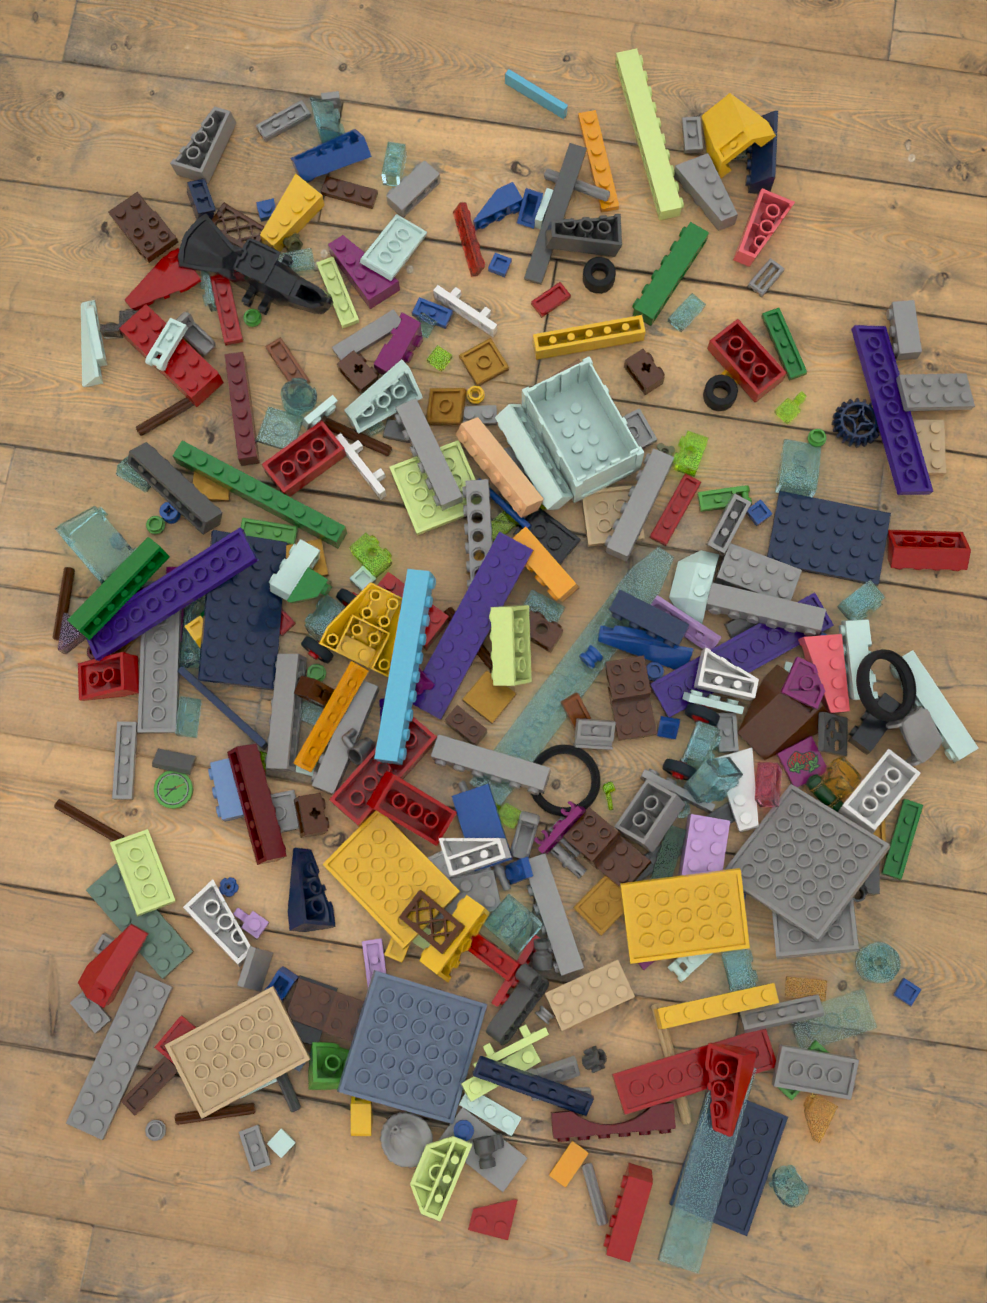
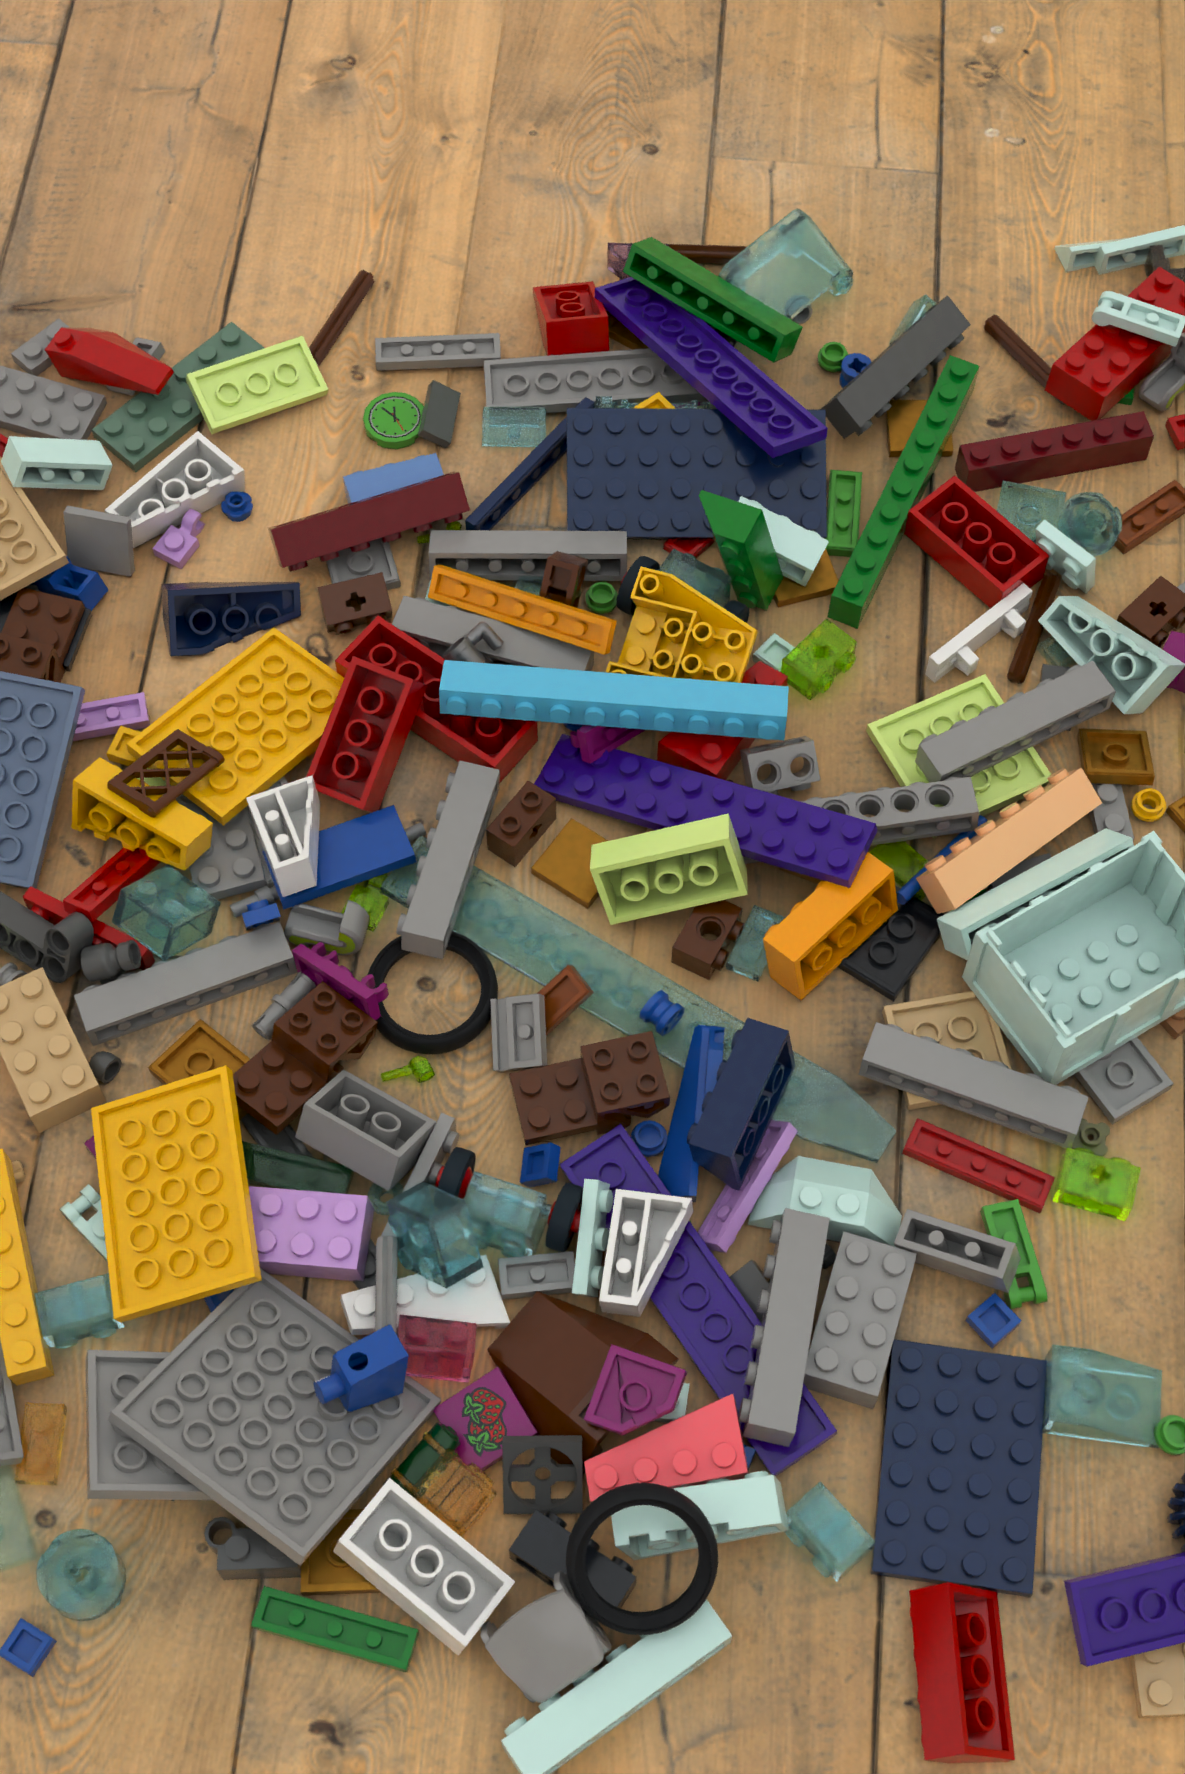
camera: 85 degrees right, 15 degrees down
(196, 996) = (56, 463): none -> light aqua brick
(446, 587) = (779, 757): none -> light grey brick
(598, 960) = (105, 1066): none -> dark grey hinge
(741, 806) = (386, 1283): none -> light grey axle
(785, 811) = (366, 1371): none -> blue torso

